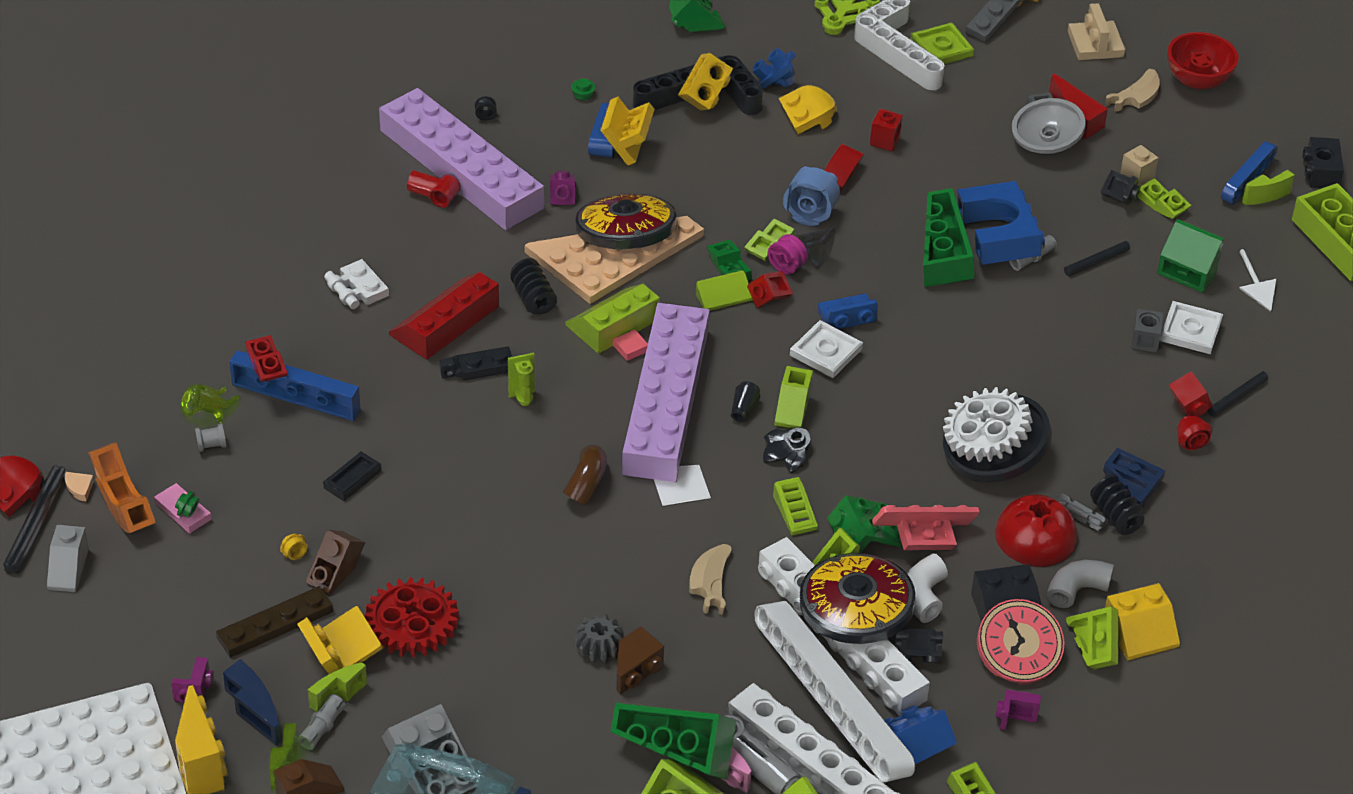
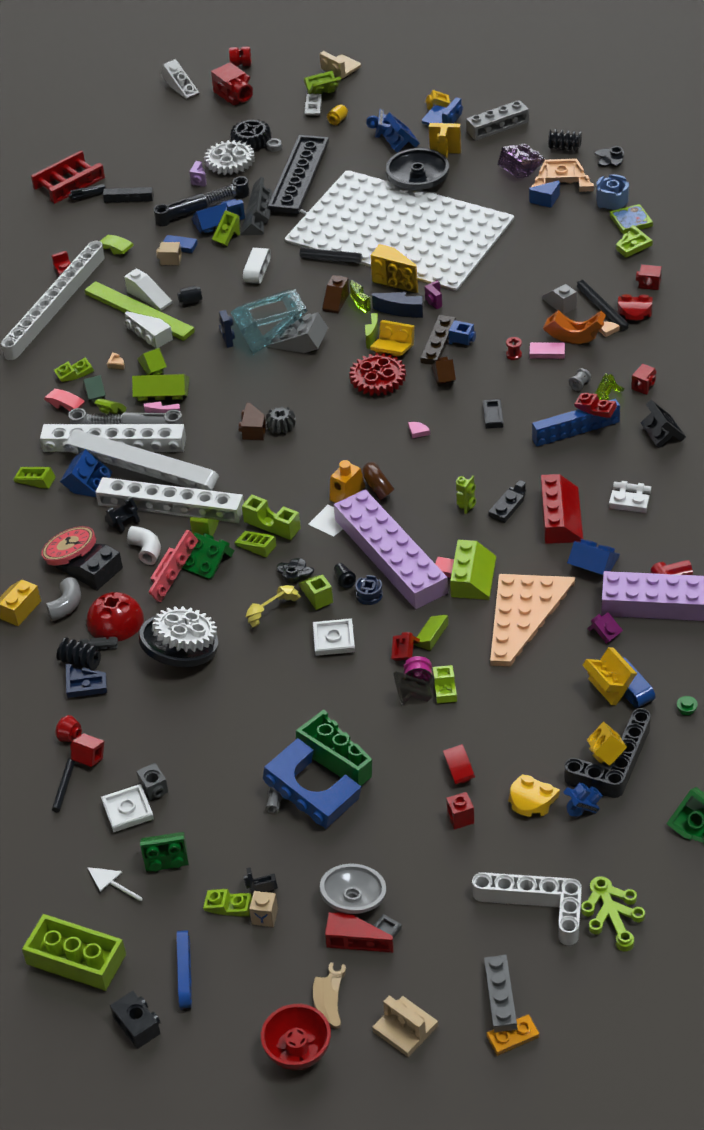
camera: 145 degrees right, 0 degrees up
(148, 386) = (643, 378): none -> red brick
(187, 504) = (539, 340): green plate -> none
(218, 524) = (513, 348): none -> red bush
(220, 319) = (661, 425): none -> black bracket
(245, 595) = (461, 333): none -> blue brick
(294, 546) = (472, 366): yellow plate -> none
(321, 722) = (361, 317): light grey pin -> none
(458, 516) = (418, 429): none -> bright pink tile
(482, 245) = (593, 558): none -> blue slope
(533, 286) = (533, 553): black piece -> none
(624, 489) = (345, 481): none -> light orange torso
(626, 221) = (534, 624): dish -> none
(683, 735) = (191, 391): green wedge -> none
(707, 577) = (262, 481): tan piece -> none
(727, 258) = (450, 654): green slope -> none
(736, 366) = (368, 590): none -> dark blue wheel
(759, 520) = (257, 513): none -> lime arch
(811, 195) = (446, 715): medium blue brick -> none
(835, 415) = (283, 592): none -> light yellow piece
(848, 311) = (347, 670): blue bracket -> none
(857, 598) = (166, 497): dish -> none
(944, 43) = (509, 931): lime tile -> none
(1018, 706) = (44, 520): magenta bracket -> none
(1097, 258) = (232, 822): black bar -> none
(1097, 636) = (32, 576): lime wing -> none
(1266, 190) = (159, 960): lime slope -> none

